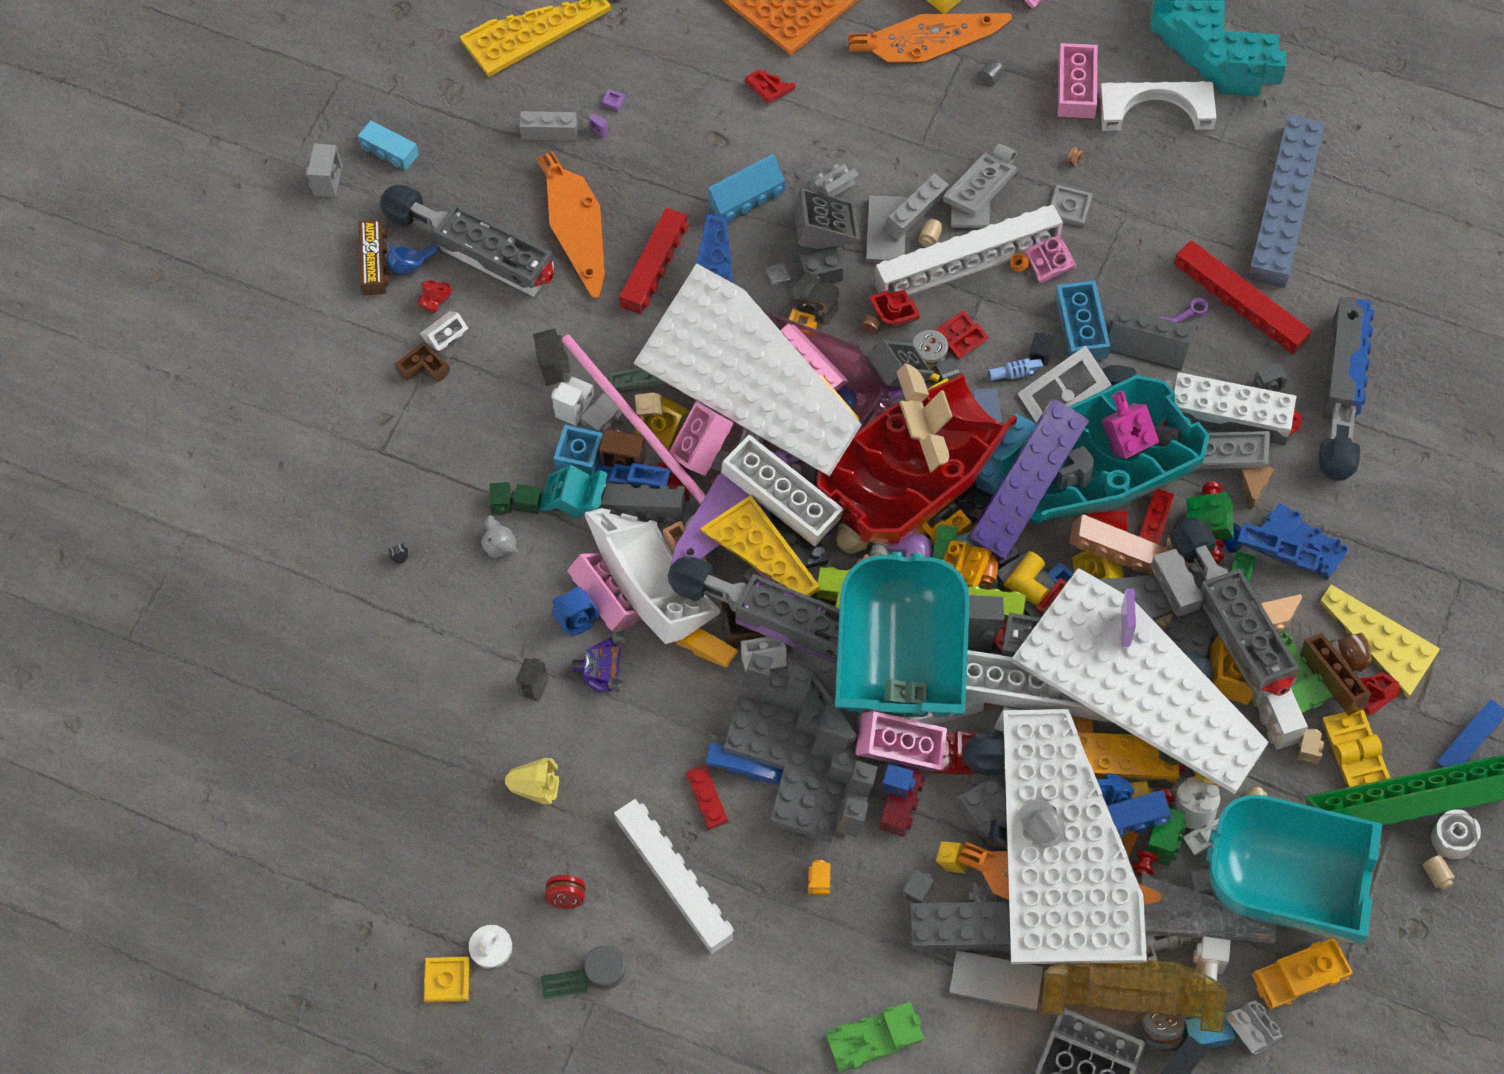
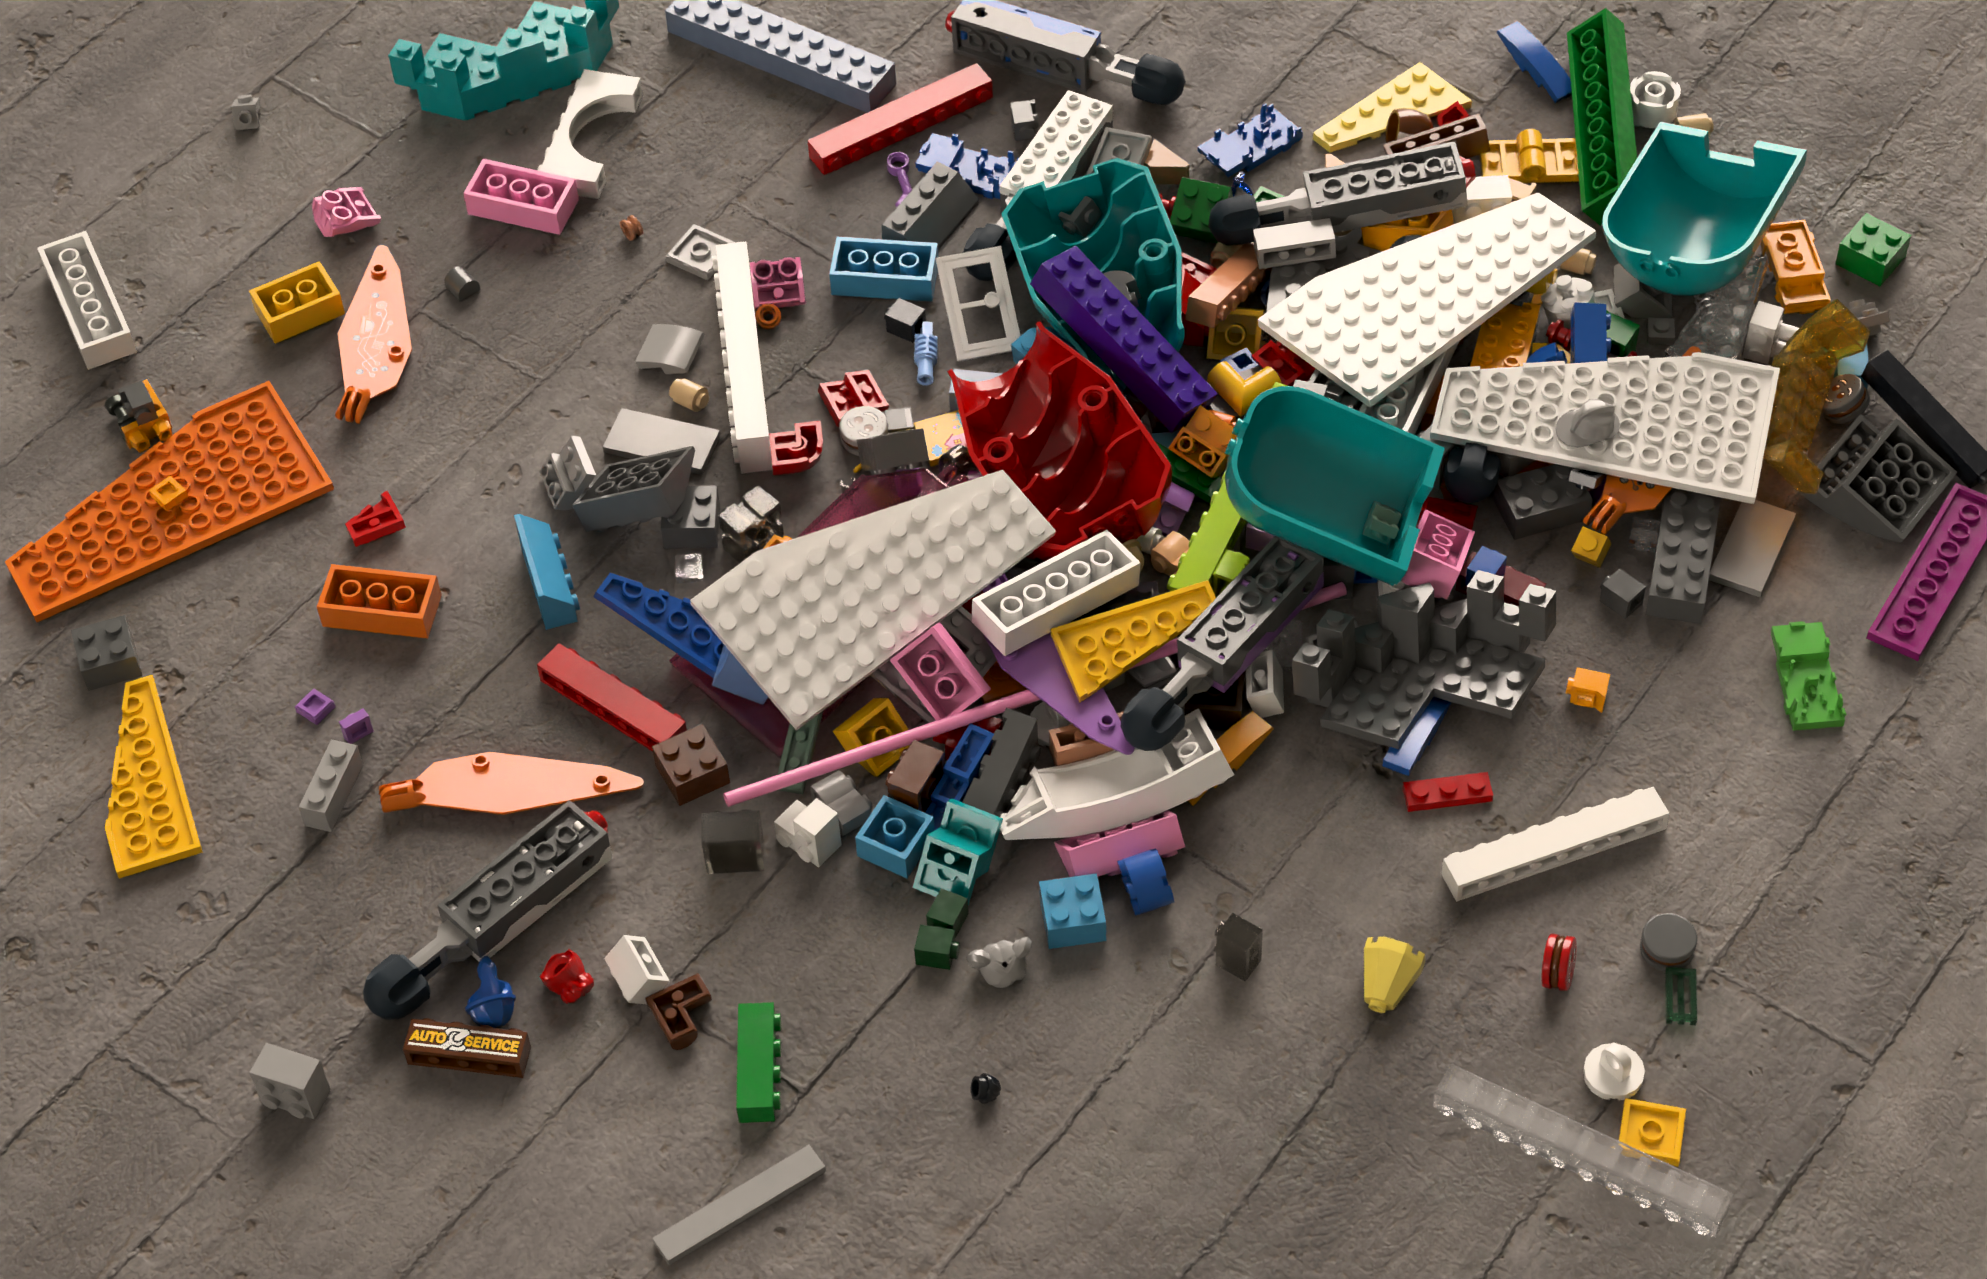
camera: 75 degrees left, 10 degrees down
(292, 436) = (739, 1205): none -> light grey tile
(388, 145) = (272, 997): medium azure brick -> none
(392, 417) = (757, 1062): none -> green brick
(418, 934) = (1583, 1150): none -> clear brick
(545, 573) = (1072, 911): none -> dark azure brick
(602, 664) = (1234, 869): torso -> none
(612, 319) = (691, 764): none -> reddish brown brick
(648, 404) = (864, 725): tan brick -> none
(697, 106) = (379, 601): none -> orange brick
(870, 324) = (805, 483): nougat bush -> none
(915, 206) = (648, 395): light grey brick -> none
(927, 420) = (1006, 410): tan piece -> none
(976, 187) = (643, 330): light grey hinge -> none
(1128, 617) = (1356, 269): medium lavender tile -> none
(1129, 428) = (1082, 227): dark pink brick -> none
(1210, 348) = (979, 170): none -> piece
(1279, 548) = (1263, 154): blue slope -> none
(1343, 1036) = (1873, 249): none -> green brick

